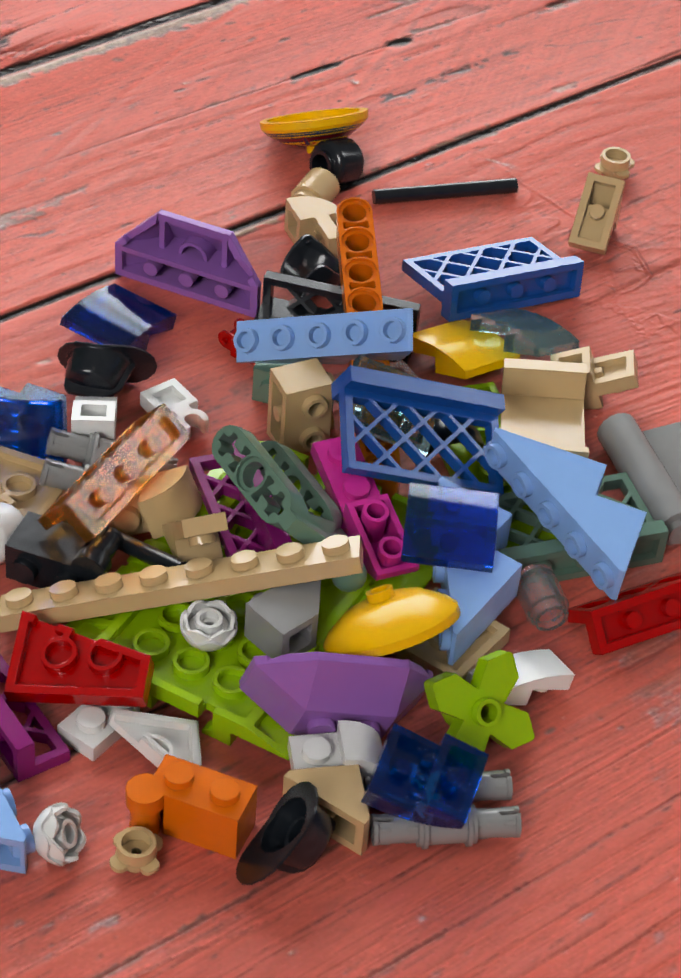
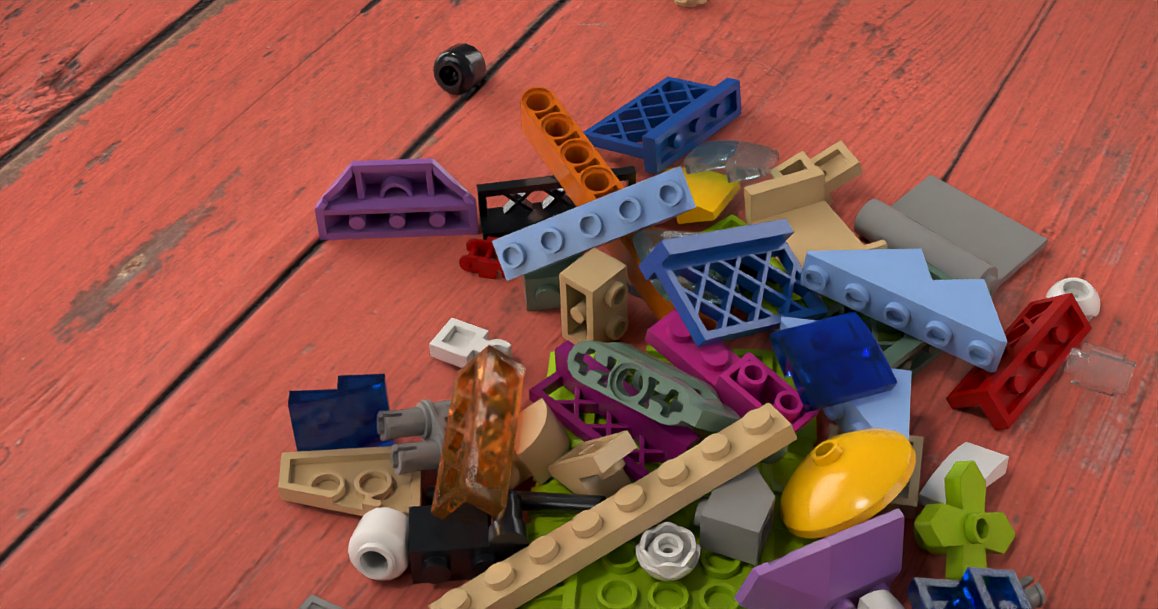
camera: 20 degrees left, 0 degrees up
(94, 415) = (409, 383): white brick -> none
(103, 368) = (379, 336): black piece -> none
(118, 318) = (357, 282): clear blue slope -> none
(311, 127) = (420, 44): yellow dish -> none
(311, 261) = (500, 163): black helmet -> none
(312, 217) = (480, 130): tan brick -> none
(318, 183) = (458, 103): tan brick -> none
(443, 191) = (564, 63): black bar -> none
(542, 597) = (930, 398): clear brick -> none
(597, 213) = (714, 37): tan slope -> none

